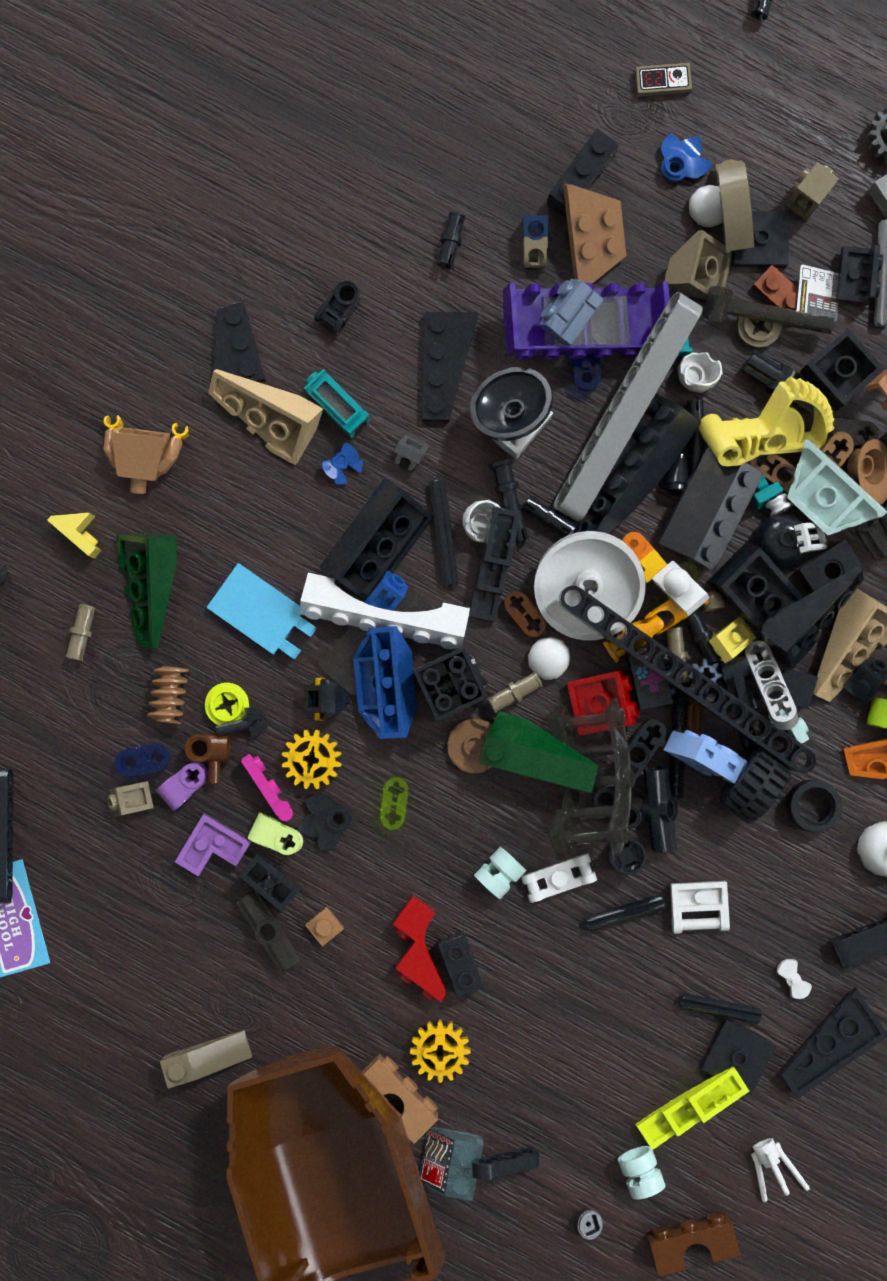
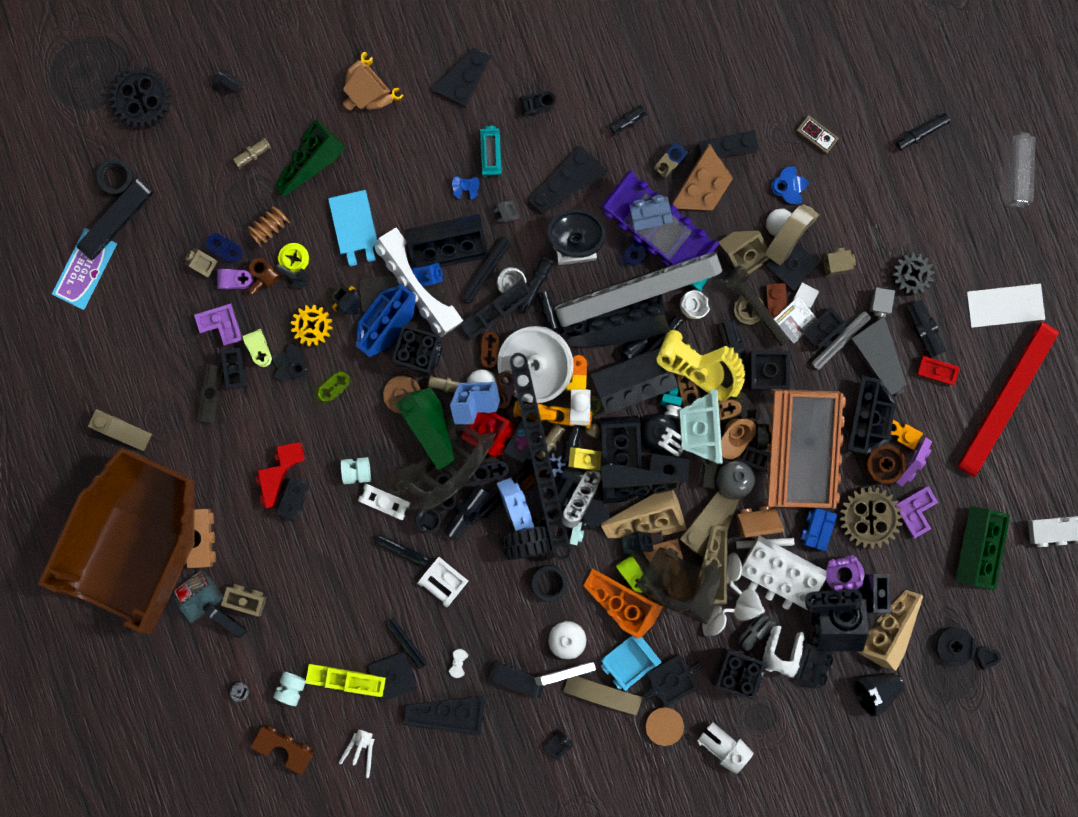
camera: 40 degrees right, 0 degrees up
(73, 526) = (296, 94): light yellow slope -> none
(268, 788) = (276, 321): dark pink hinge -> none
(274, 414) = (453, 130): tan wedge -> none
(324, 926) = (241, 417): medium nougat plate -> none
(428, 1051) = (237, 540): yellow gear -> none
(507, 1122) = (244, 601): none -> dark tan brick
(558, 681) = (474, 398): none -> medium blue brick
(579, 643) = (505, 390): none -> reddish brown plate
(804, 255) = (807, 294): none -> white tile

